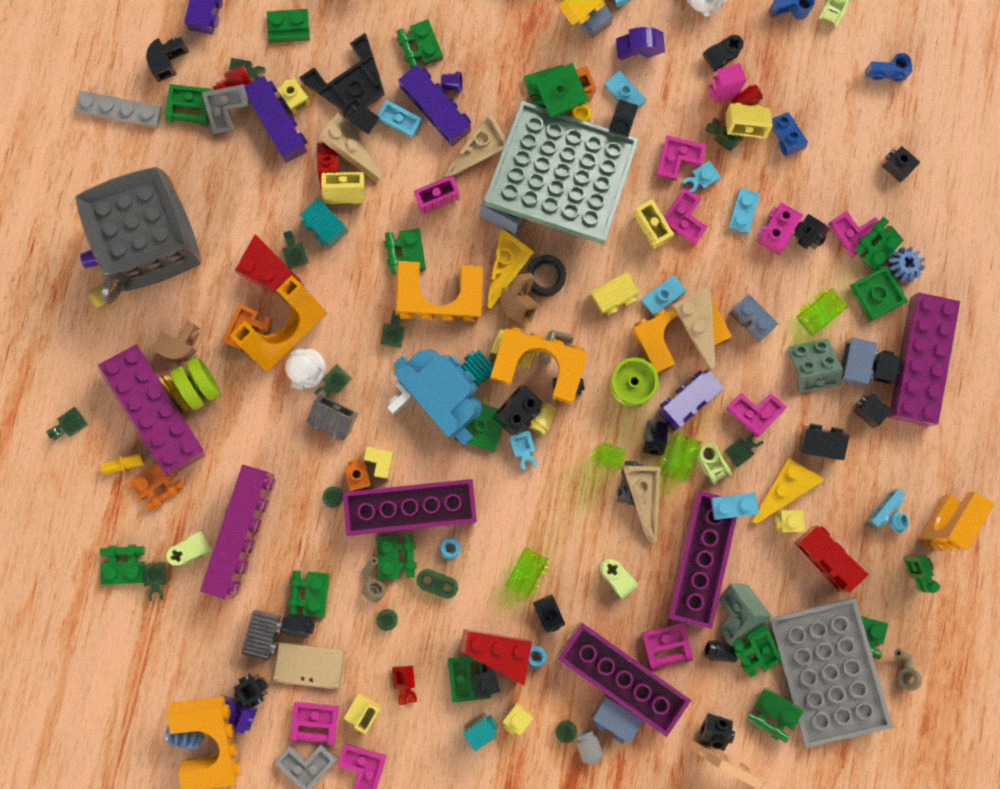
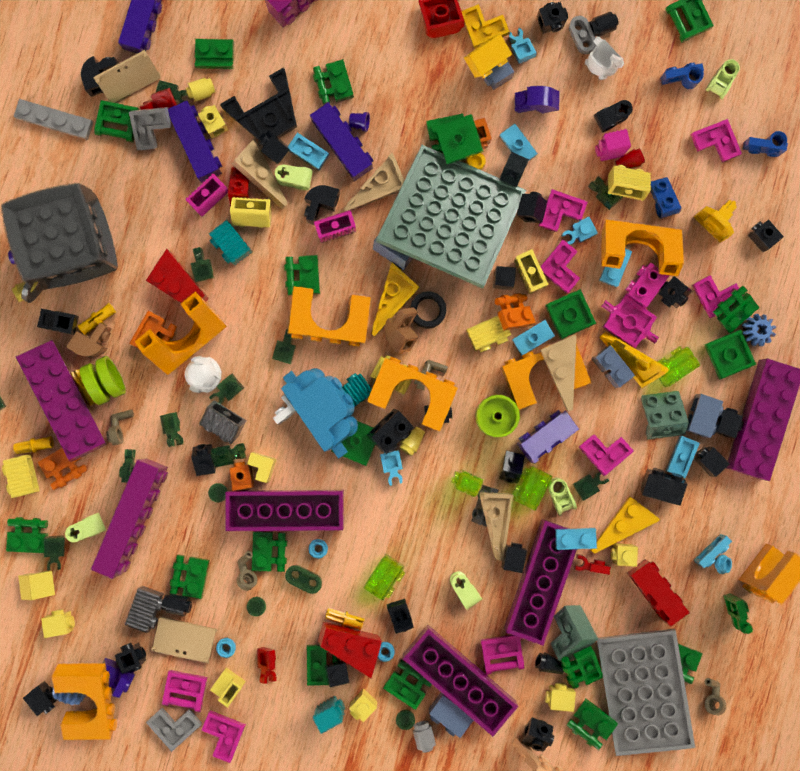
camera: 15 degrees right, 5 degrees up
(111, 499) = (20, 476): none -> light yellow brick
(137, 619) = (36, 585): none -> light yellow piece
(142, 324) = (58, 321): none -> black brick
(153, 748) = (40, 699): none -> black brick
(165, 660) = (57, 623): none -> light yellow brick
(182, 317) = (96, 318): none -> yellow pin
(199, 59) = (129, 79): none -> tan door
(212, 440) = (115, 434): none -> dark tan plate
(231, 475) = (126, 470): none -> clear green plate
(274, 427) = (170, 426): none -> clear green plate
(277, 63) = (200, 89): none -> light yellow brick
(294, 173) = (207, 195): none -> dark pink brick
(313, 462) = (202, 460): none -> black bracket
(338, 455) = (225, 455): none -> clear green plate
(350, 672) = (226, 653): none -> medium azure plate
(388, 147) = (296, 176): none -> yellowish green piece
(417, 166) = (320, 196): none -> black brick
(487, 623) = (344, 618): none -> yellow axle
(561, 696) = (403, 688): none -> green plate
(625, 233) = (504, 278): none -> black brick
(643, 273) = (515, 317): none -> orange plate
(647, 156) = (532, 207): none -> black brick
(668, 536) = (514, 557): none -> black brick
(701, 266) = (570, 314): none -> green plate
(737, 688) = (560, 697): none -> light yellow brick
(761, 537) = (597, 566): none -> red plate
(766, 268) = (629, 321): none -> dark pink plate
(785, 313) = (644, 368): none -> yellow wing
(791, 178) = (663, 240): none -> light orange arch
(839, 64) = (721, 136): none -> dark pink plate
(840, 407) = (682, 456): none -> medium azure plate
(847, 153) = (717, 221): none -> yellow piece

